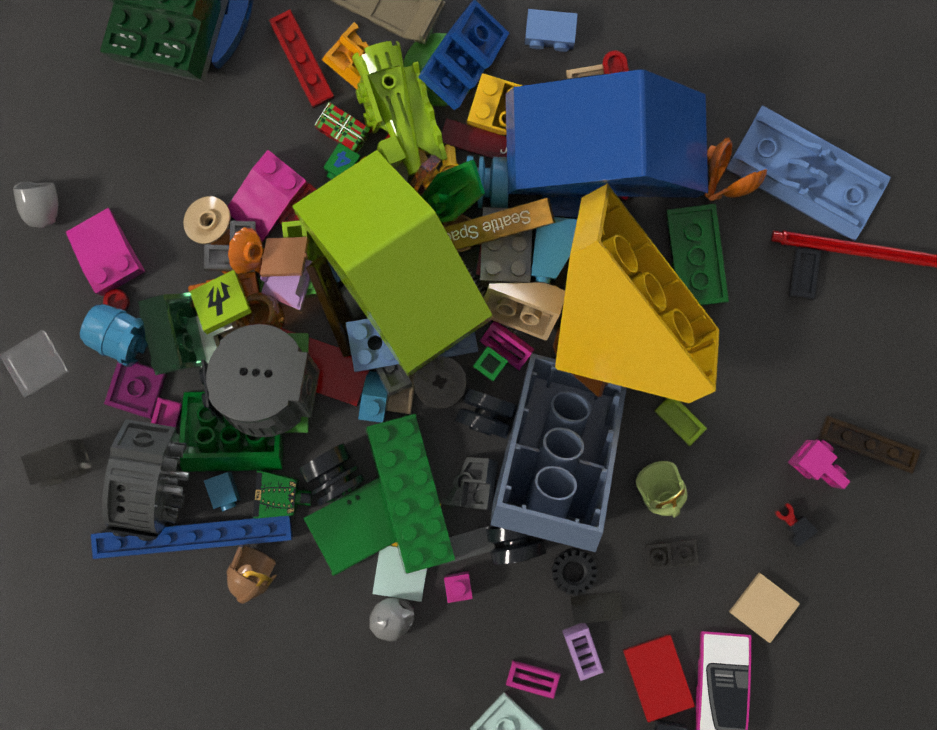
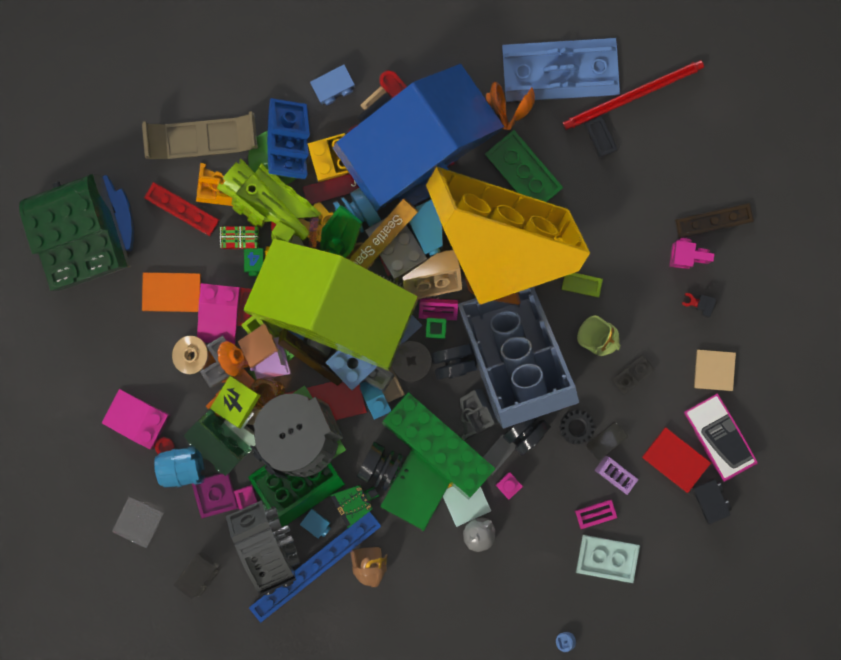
camera: 40 degrees left, 0 degrees up
(37, 203) = (72, 415): light grey piece -> none
(230, 139) = (171, 292): none -> orange tile

